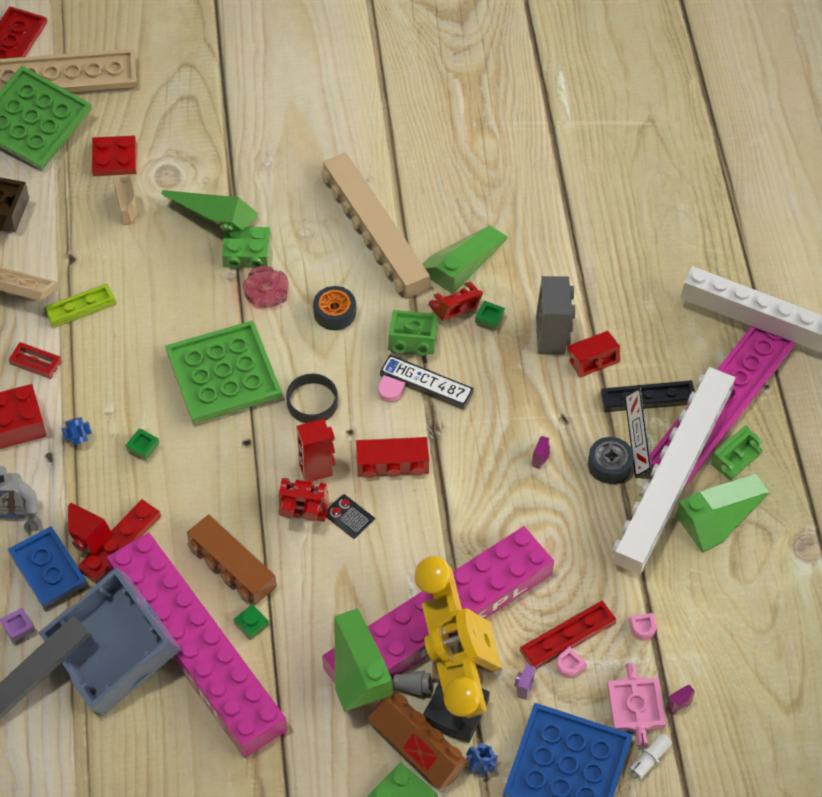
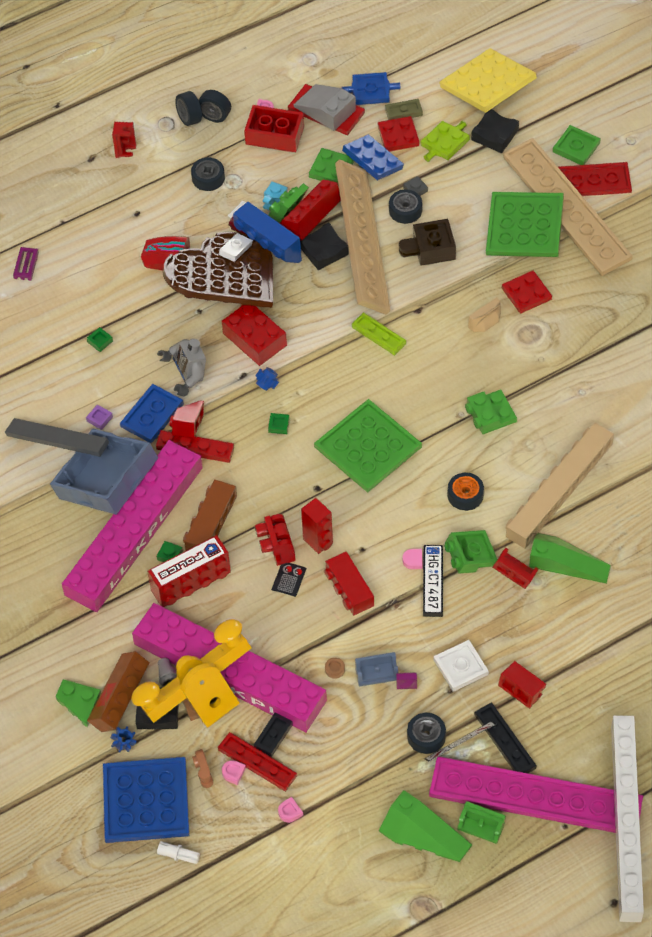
camera: 70 degrees right, 0 degrees up
(32, 363) = (316, 341): red tile -> none
(221, 210) = (505, 376): bright green wedge -> none
(266, 298) = (455, 448): clear pink plate -> none
(300, 604) = (189, 571): none -> red brick
(306, 379) = (376, 495): black tyre -> none
(359, 666) = (148, 627): bright green wedge -> none
(487, 514) = (334, 668): none -> medium nougat tile
(489, 315) = (518, 597): green plate -> none
(512, 475) = (376, 669): none -> sand blue hinge
(525, 681) = (198, 743): medium lavender plate -> none
(544, 604) = (273, 734): none -> black plate
(545, 397) = (461, 665): none -> white plate
(554, 314) = (530, 635): dark grey brick -> none
(555, 688) = (204, 772): none -> nougat plate
(636, 704) = (217, 827): bright pink plate -> none
(673, 472) = (434, 776): white brick -> none
(680, 699) = (234, 856): magenta tile -> none

